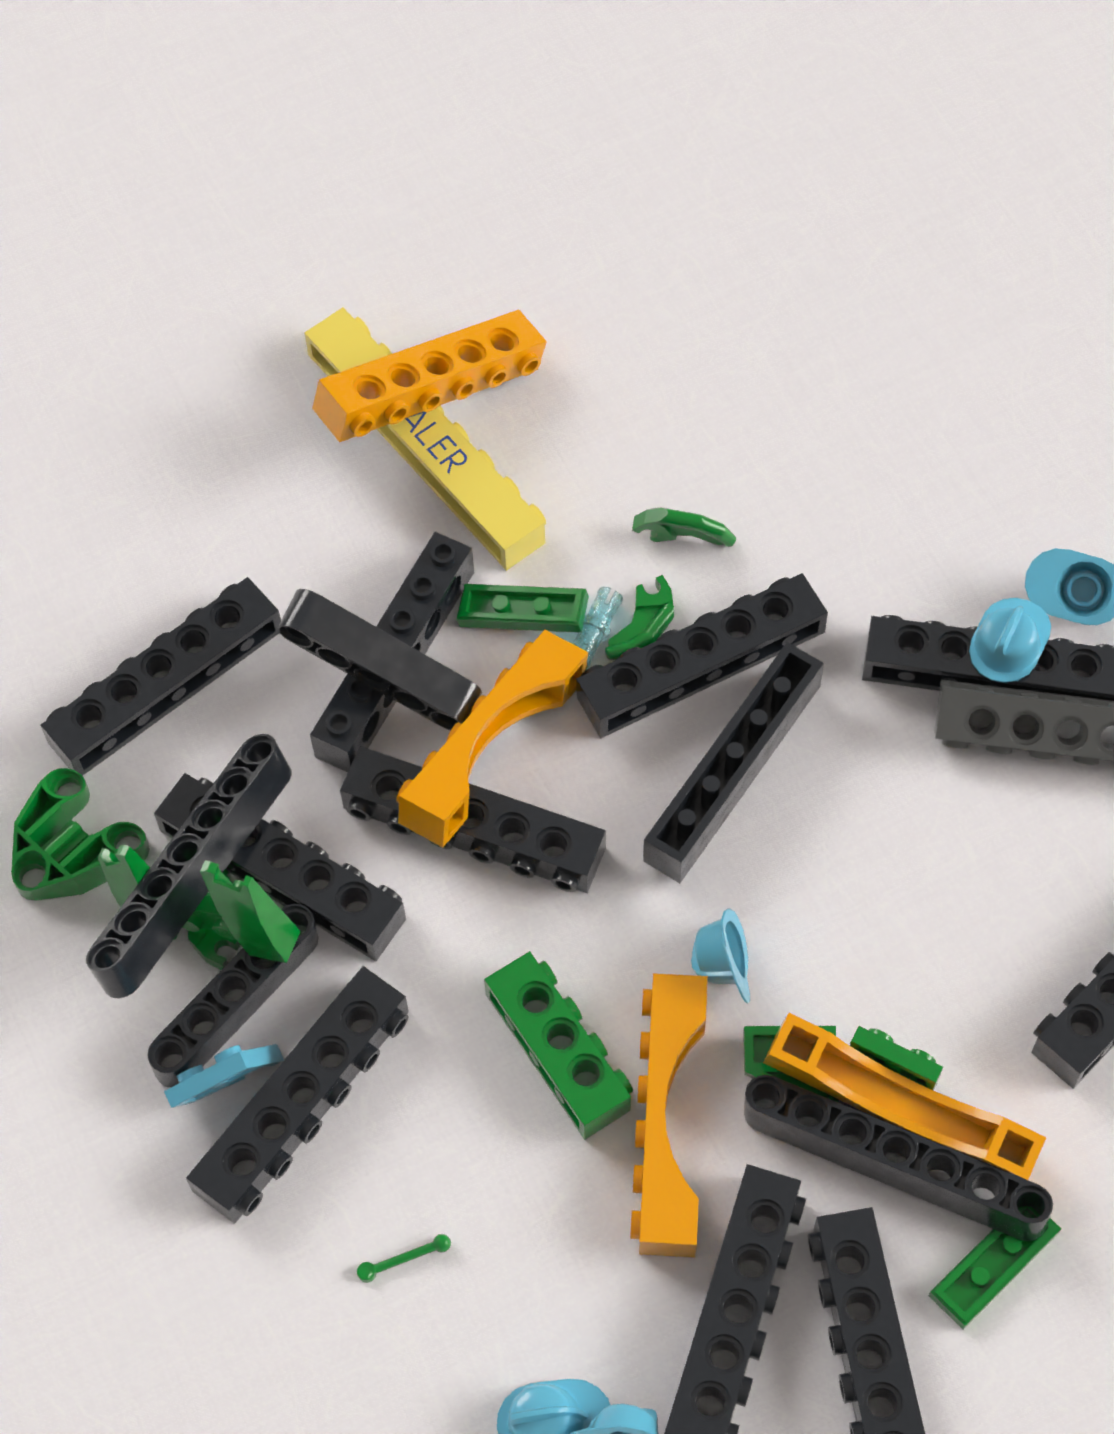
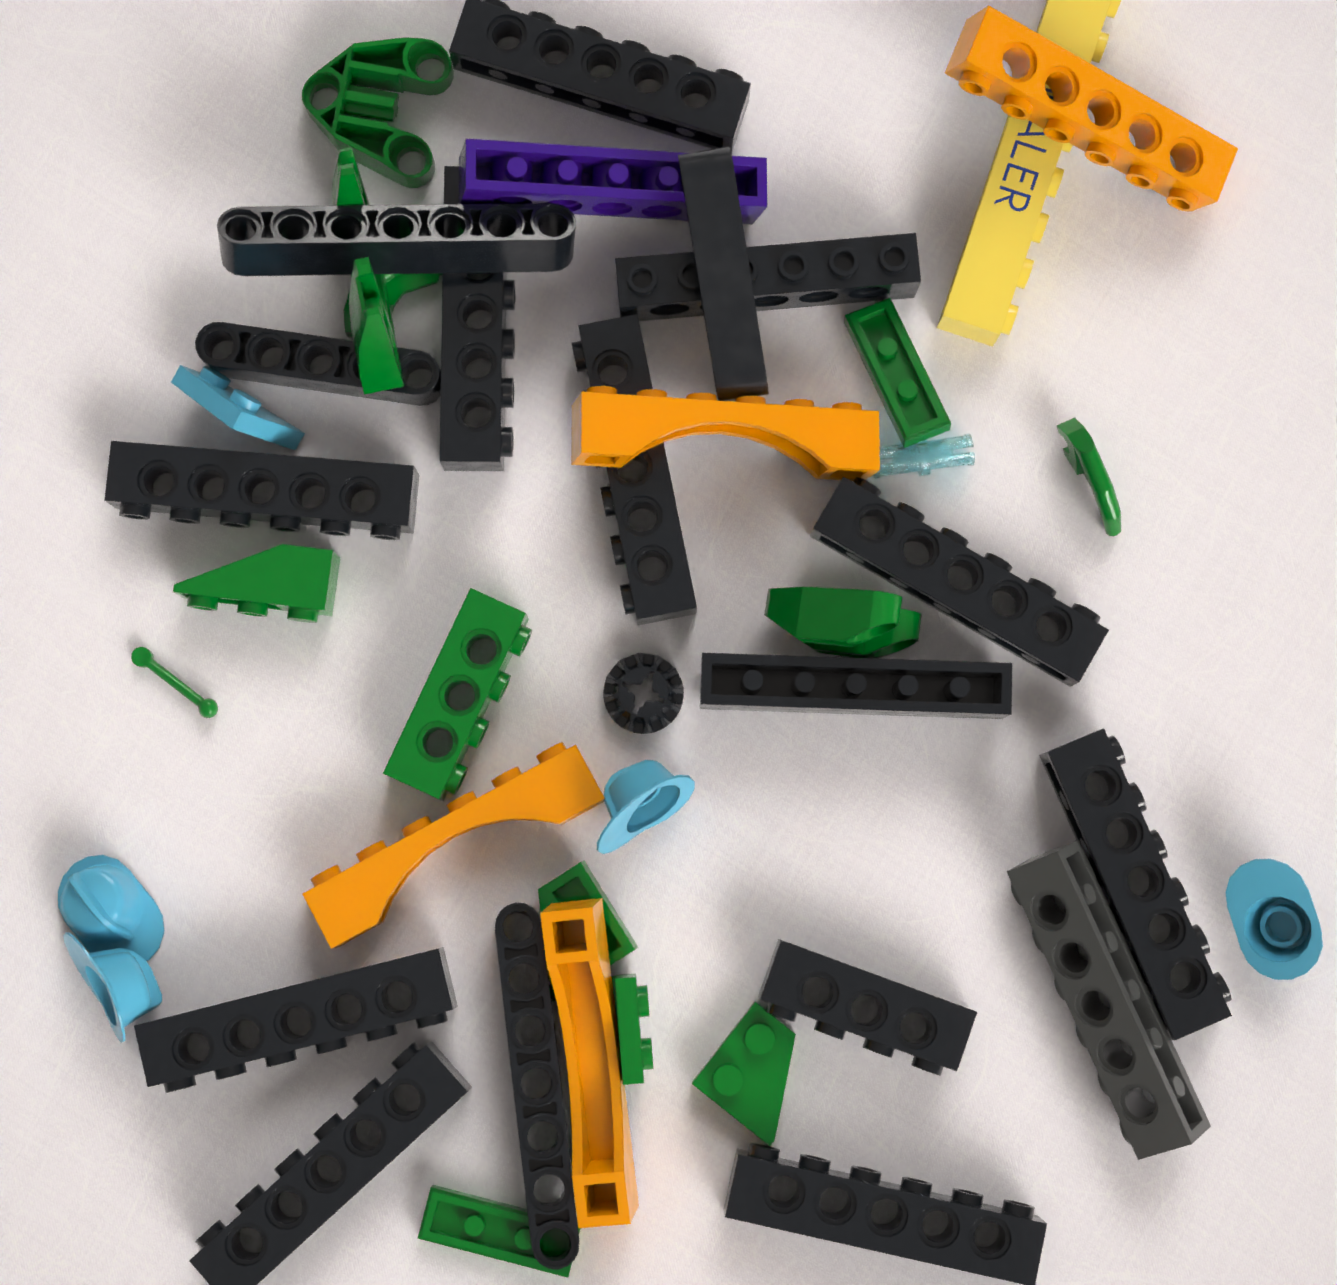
camera: 55 degrees right, 20 degrees up
(241, 711) = (593, 179): none -> dark purple brick
(380, 1123) = (277, 579): none -> green slope
(638, 933) = (653, 715): none -> black gear
(649, 620) = (964, 506): green piece -> none
(678, 735) = (844, 620): none -> green connector
(978, 1005) = (751, 1072): none -> green wing
(1009, 640) = (1166, 885): medium azure piece -> none
(1020, 844) = (946, 1022): none -> black brick

